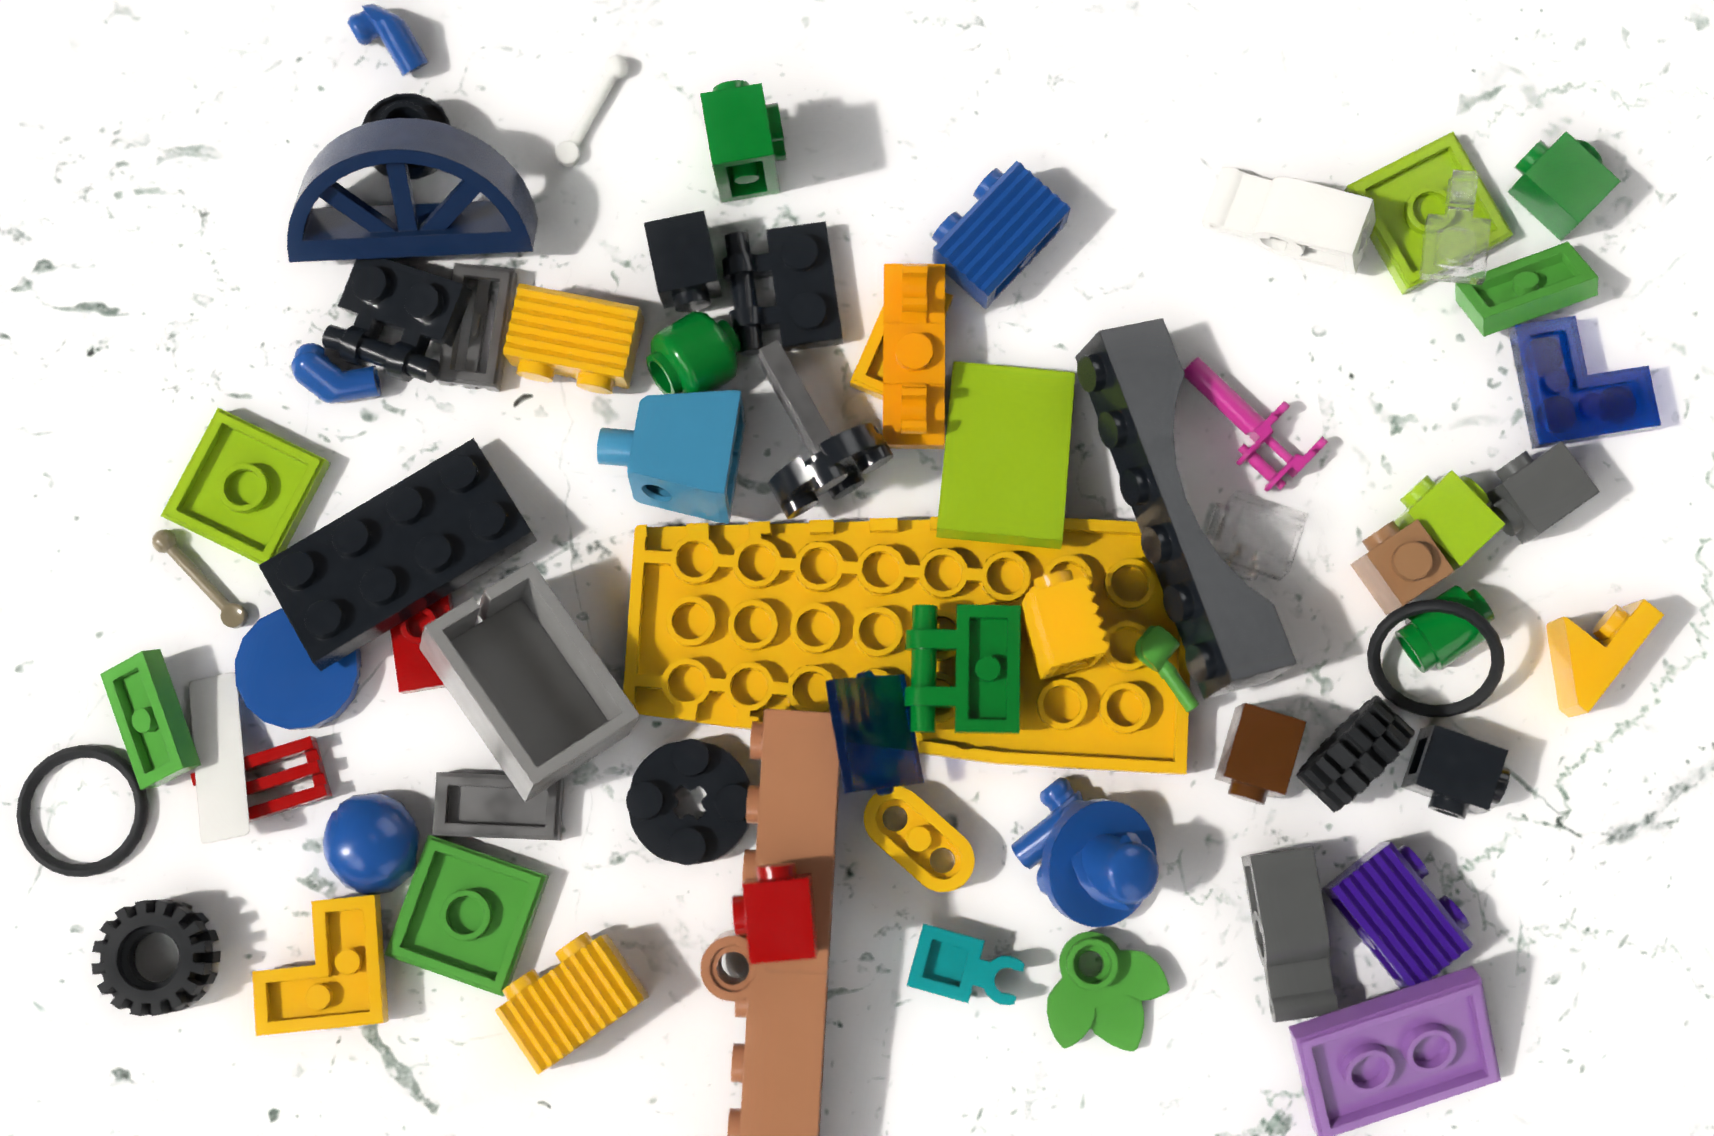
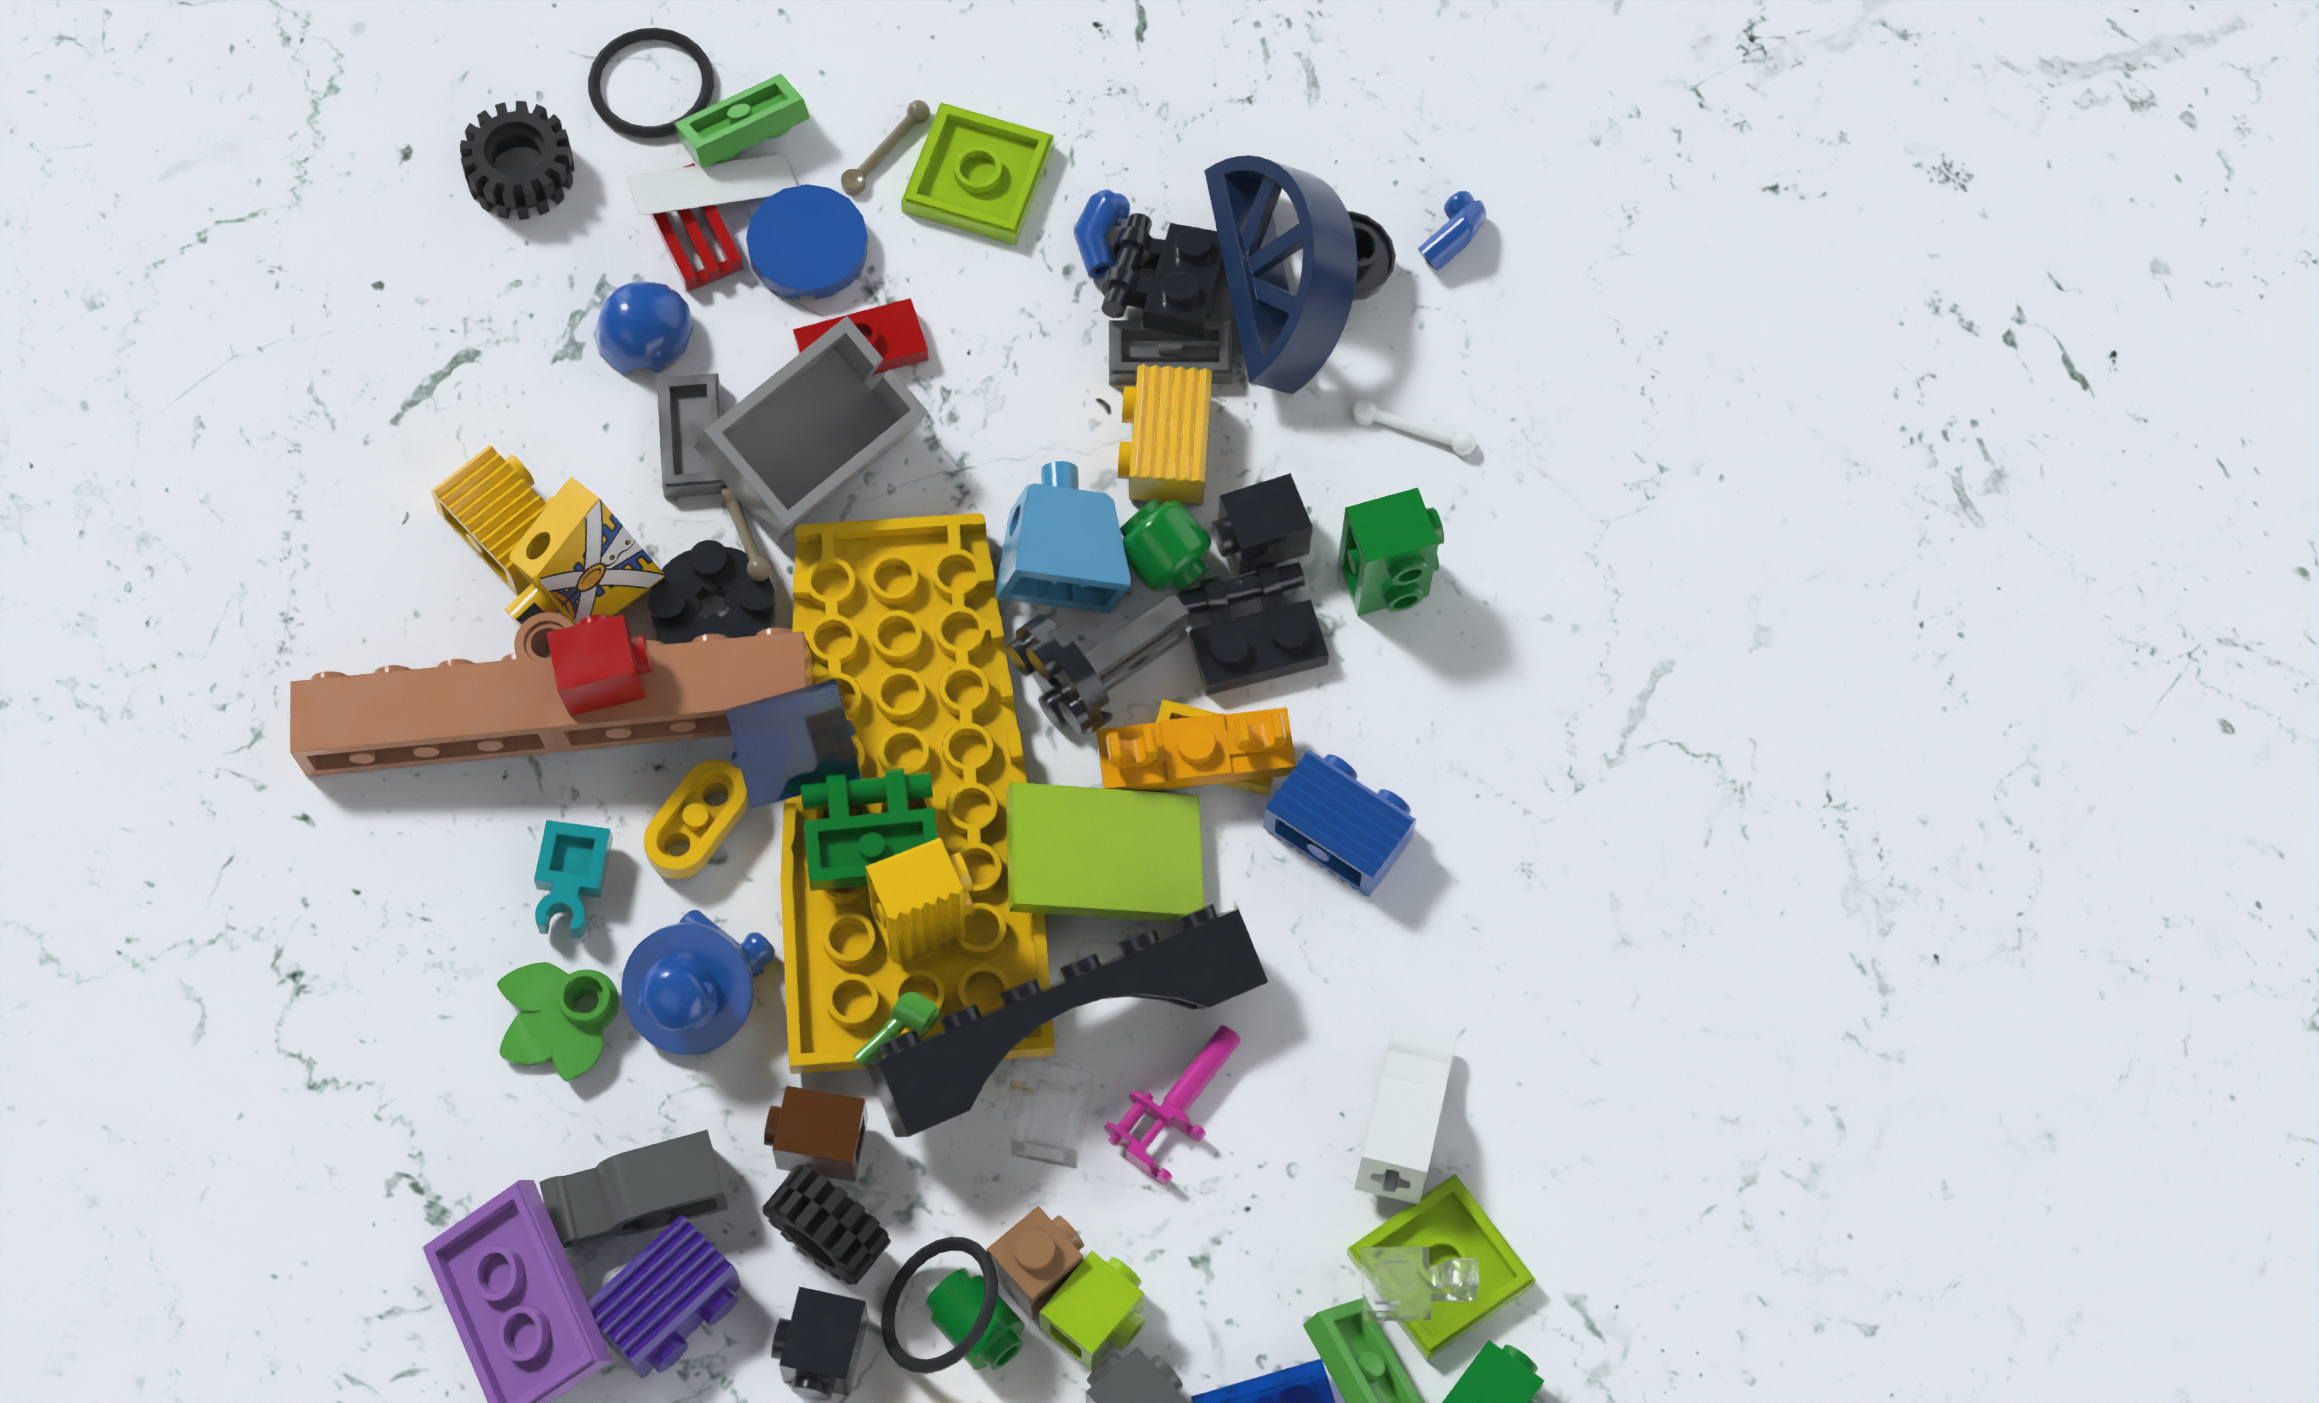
camera: 75 degrees right, 15 degrees down
(342, 986) = (510, 322): yellow plate -> none
(396, 554) = (928, 307): black plate -> none
(467, 915) = (583, 422): bright green tile -> none
(643, 931) = (579, 560): none -> torso
(667, 750) = (757, 567): none -> dark tan hinge

